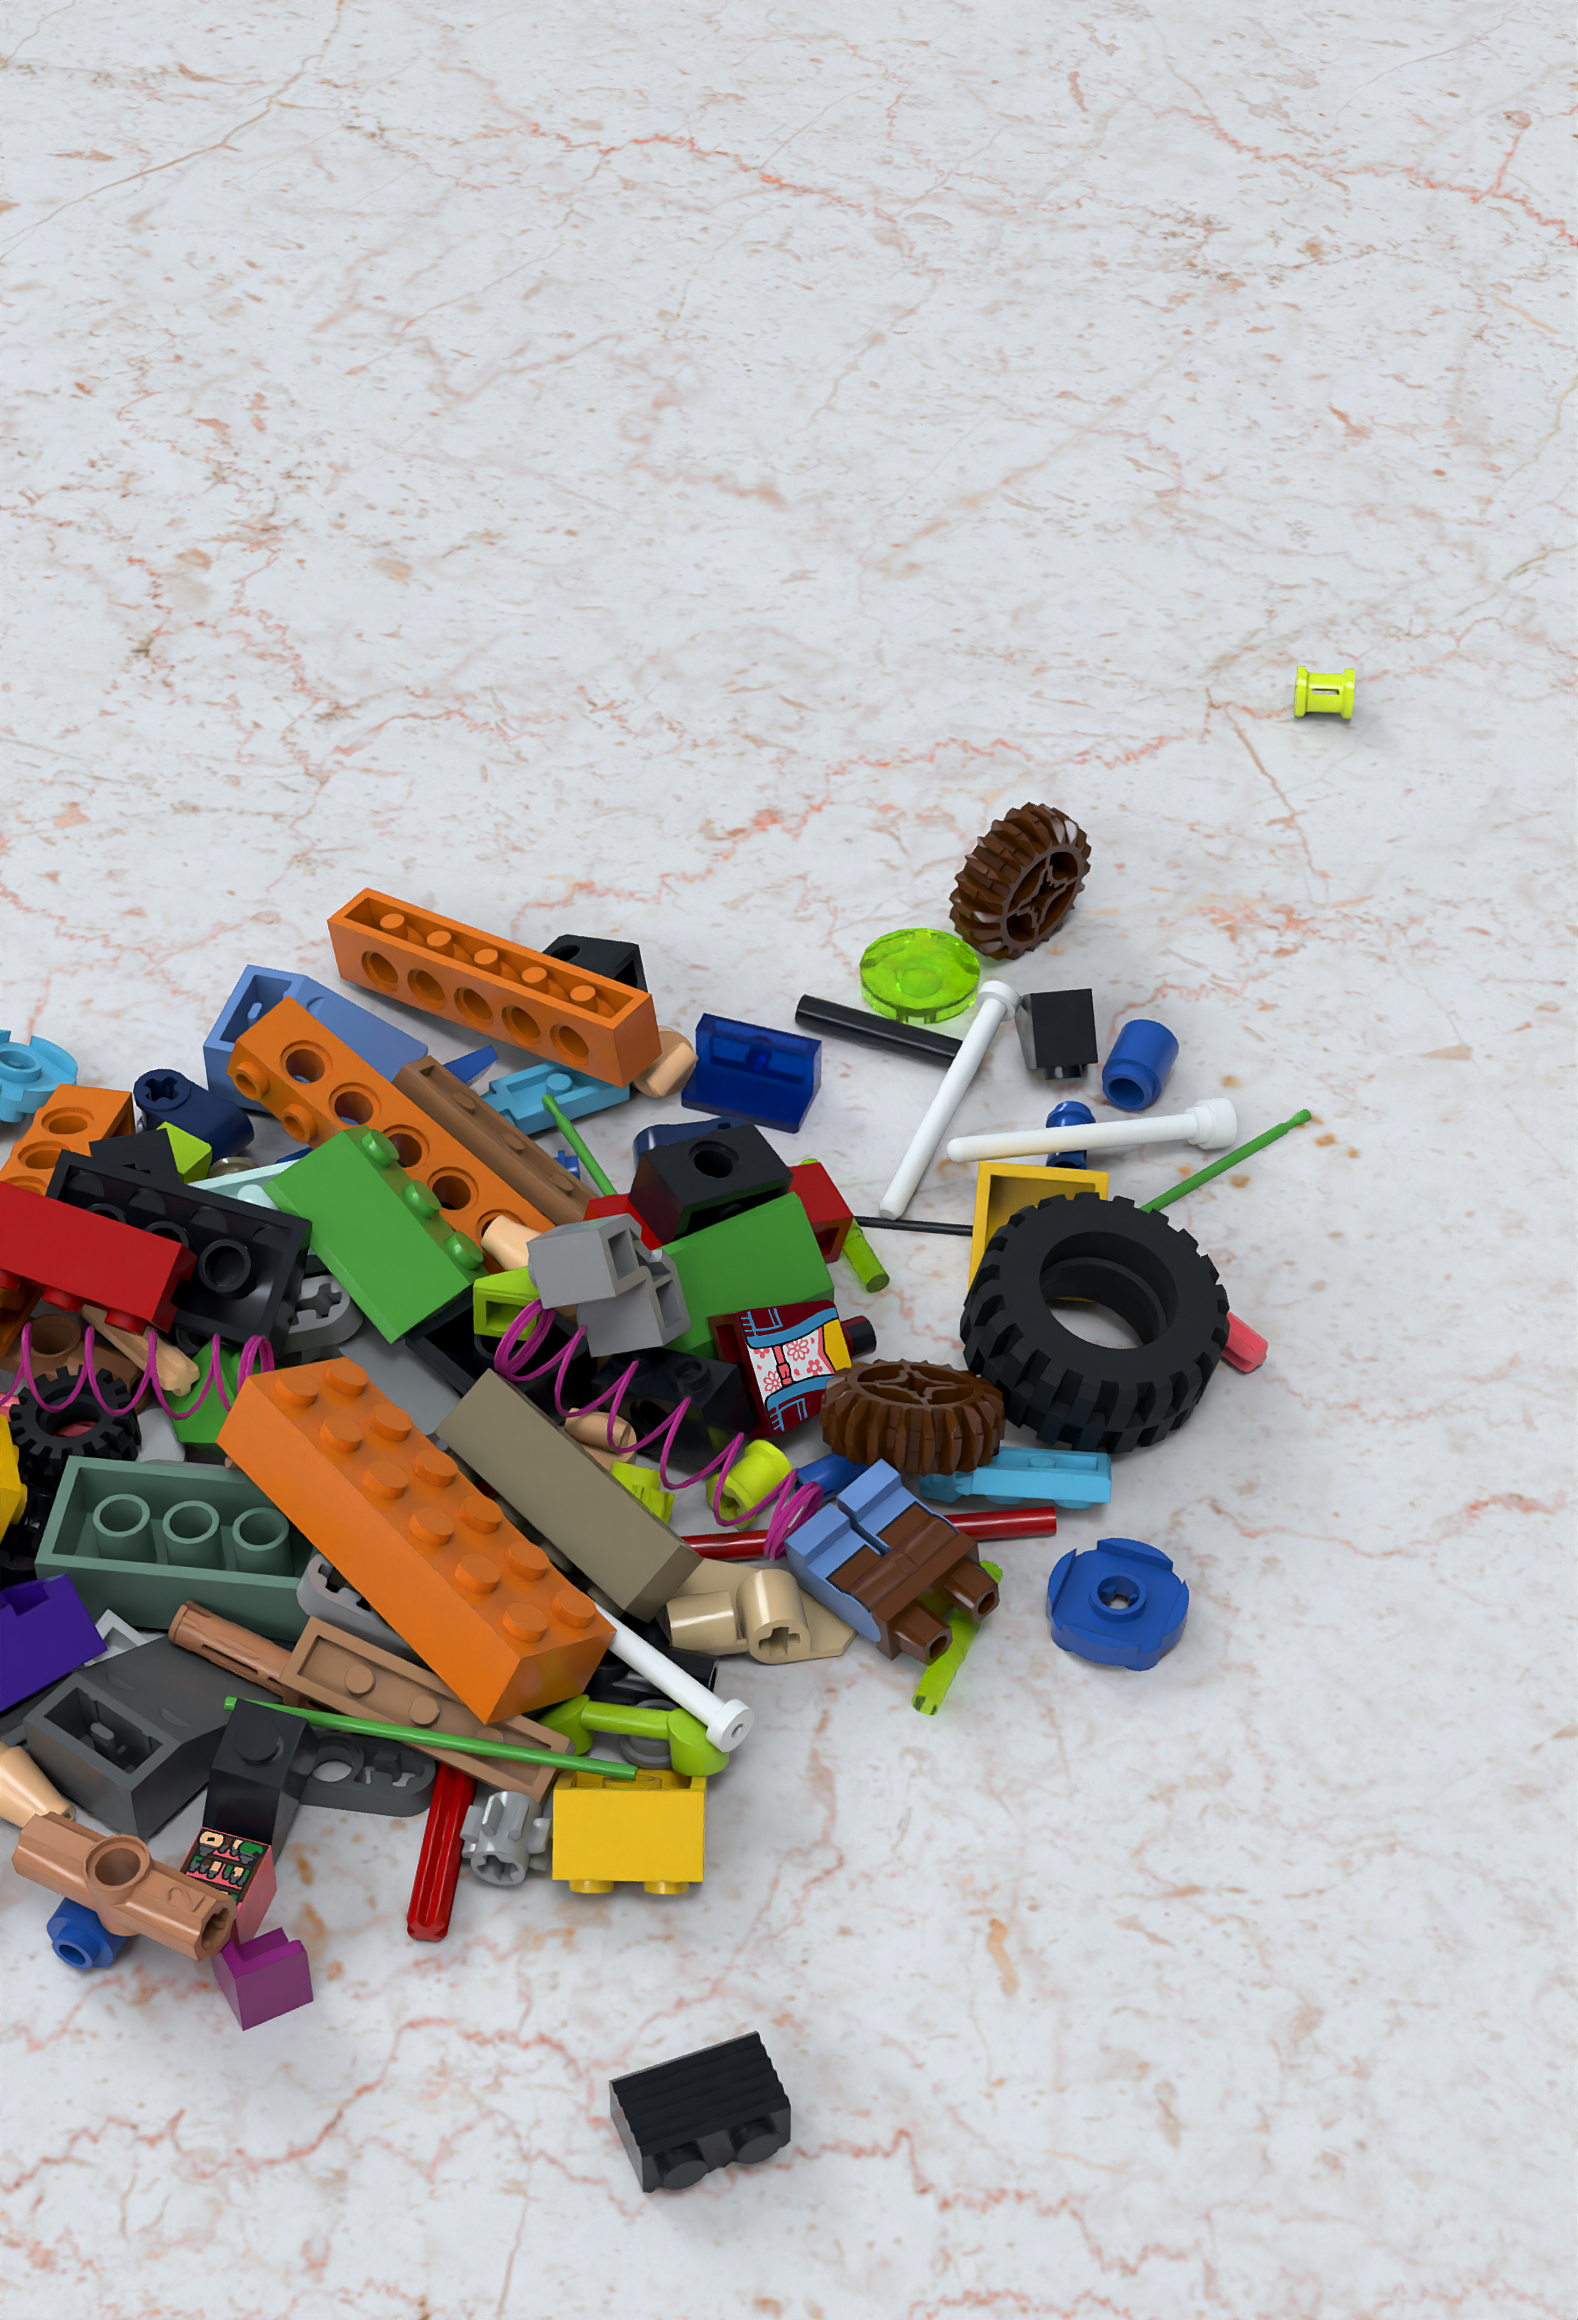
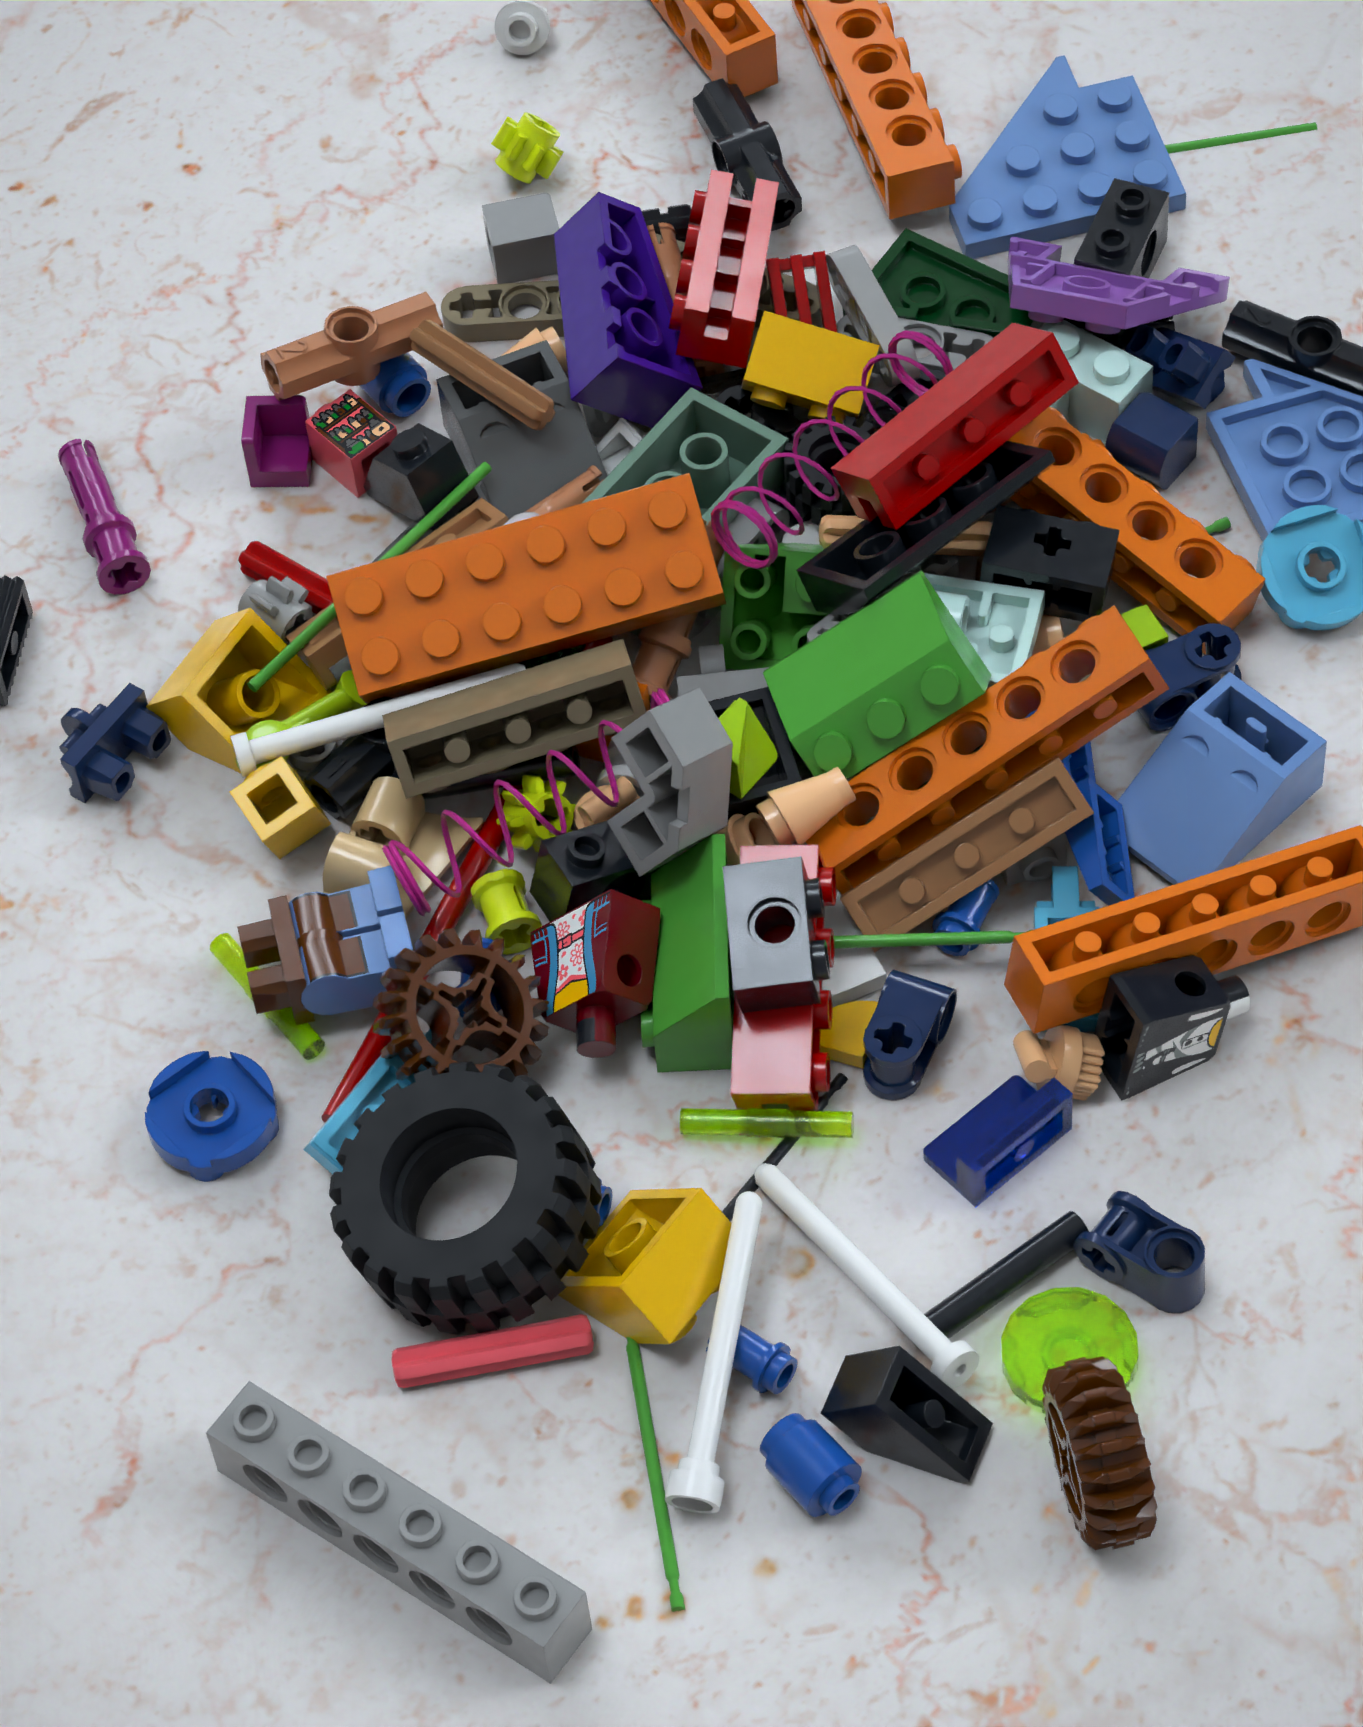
camera: 125 degrees right, 10 degrees up
(116, 1733) = (482, 375): none -> medium nougat axle
(473, 2075) = (107, 533): none -> magenta pin
(762, 1910) = (105, 738): none -> dark blue hips
(771, 1680) = (279, 807): none -> yellow brick
(805, 947) = (1136, 1245): none -> dark blue piece
(1402, 1276) = (400, 1531): none -> light grey brick

